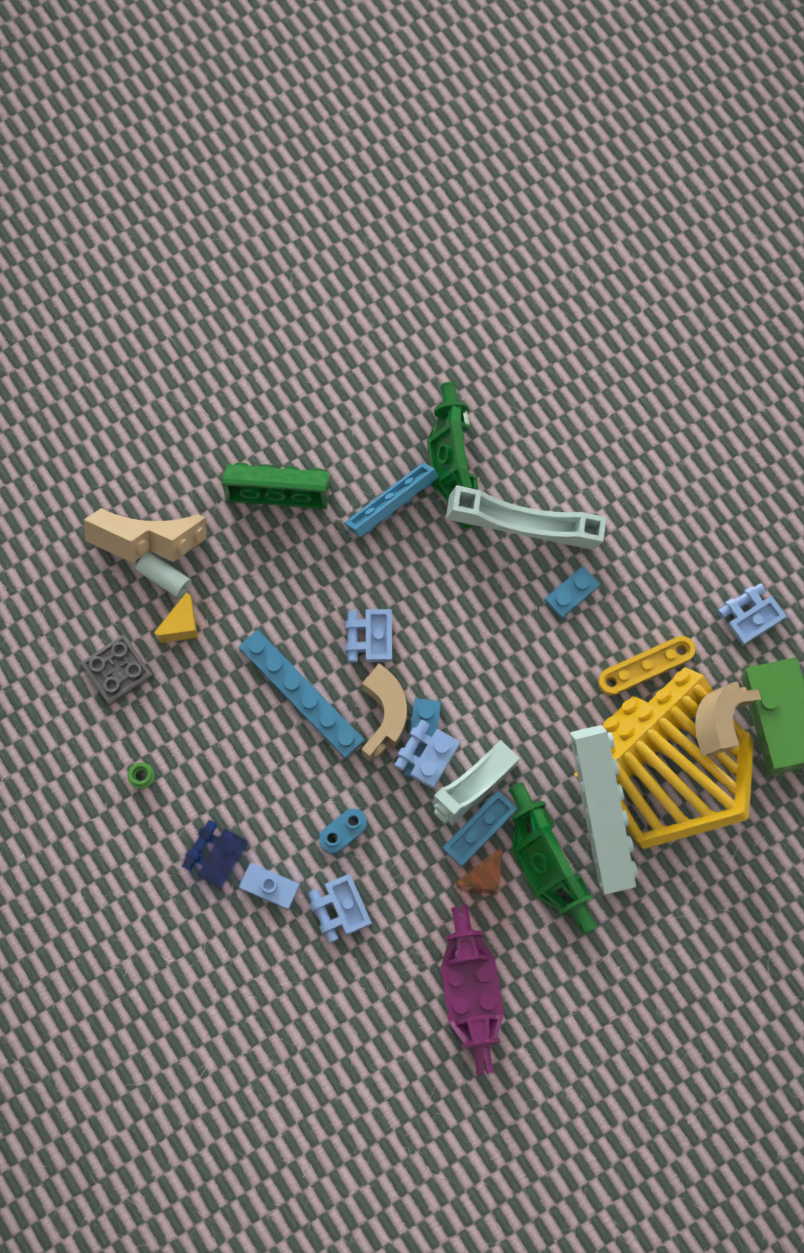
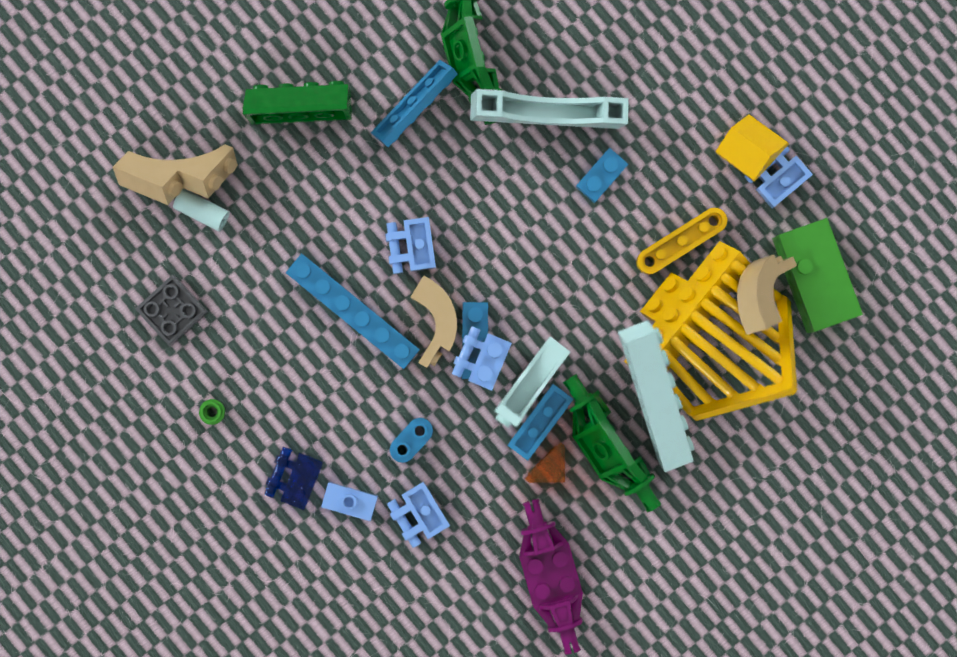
camera: 10 degrees left, 15 degrees up
(179, 623) = (225, 256): yellow slope -> none
(726, 582) = (751, 147): none -> yellow slope

